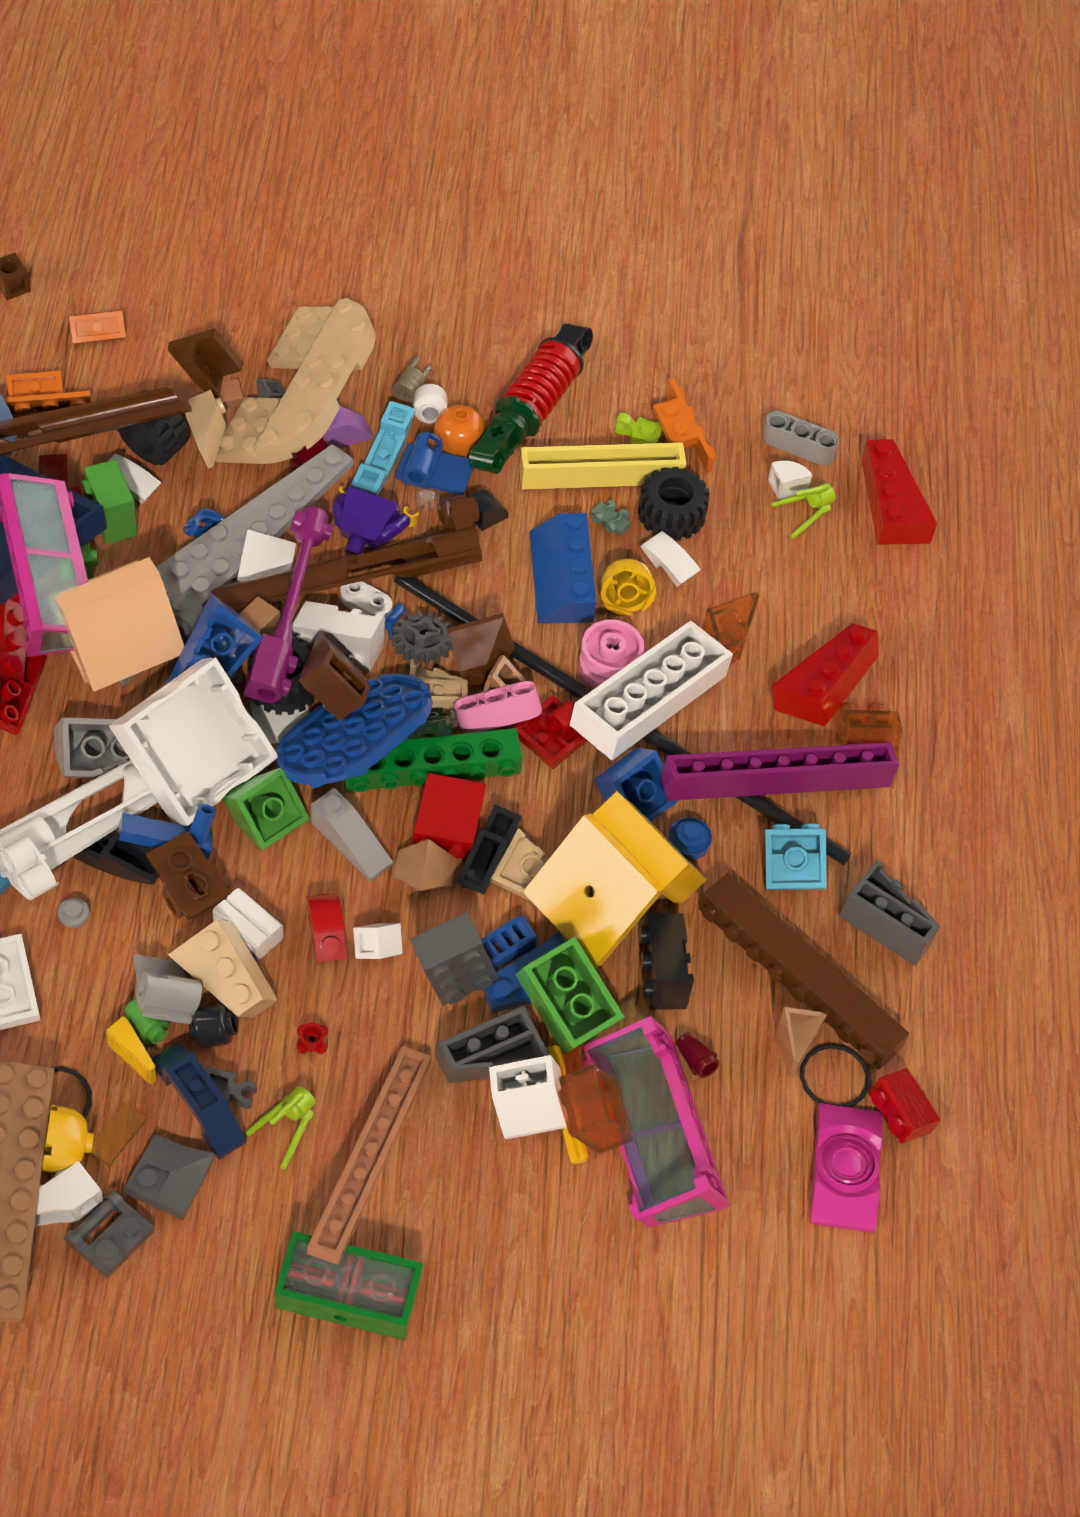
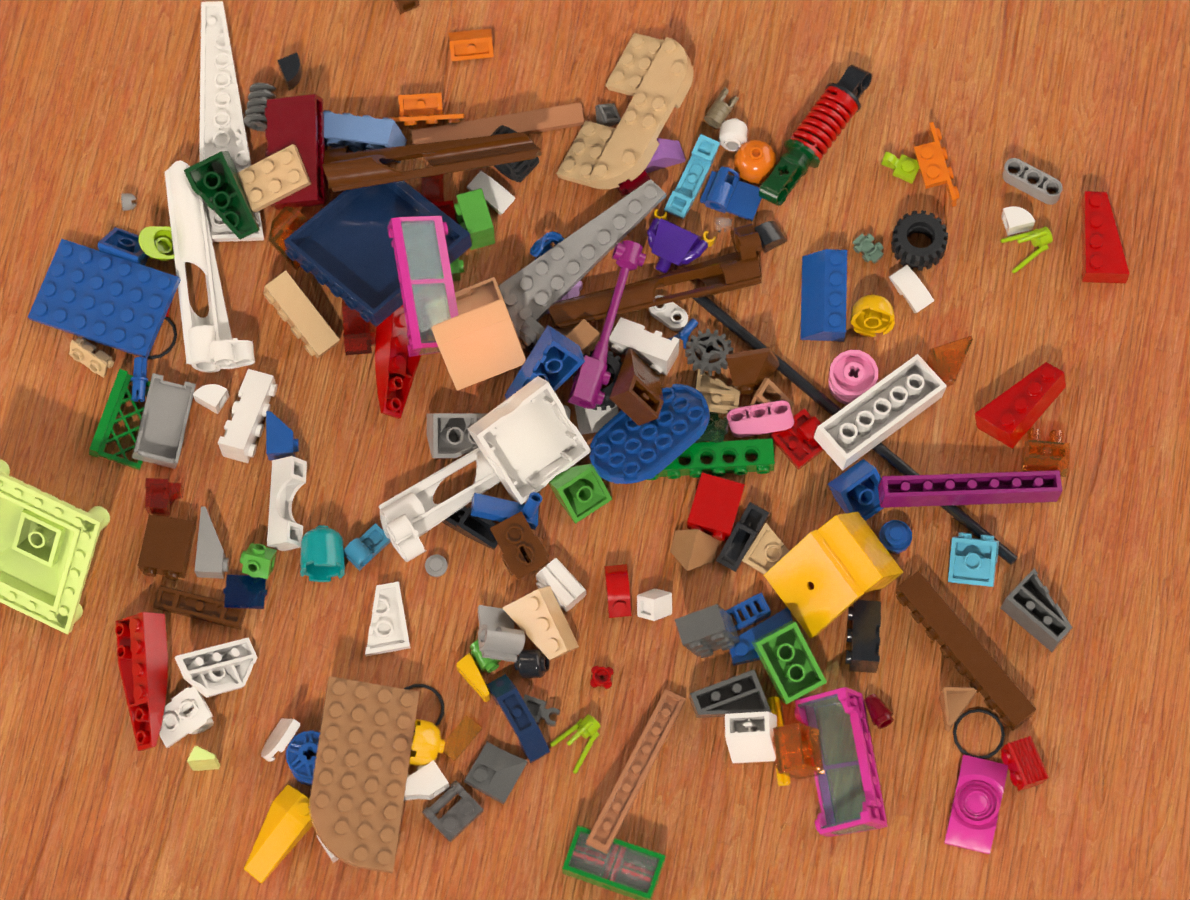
camera: 15 degrees right, 15 degrees up
(206, 359) = (555, 92): reddish brown bracket -> none
(207, 424) = (553, 142): tan slope -> none
(264, 555) = (592, 276): white sticker -> none
(349, 834) = (641, 517): light grey slope -> none
(596, 464) = (863, 202): light yellow brick -> none

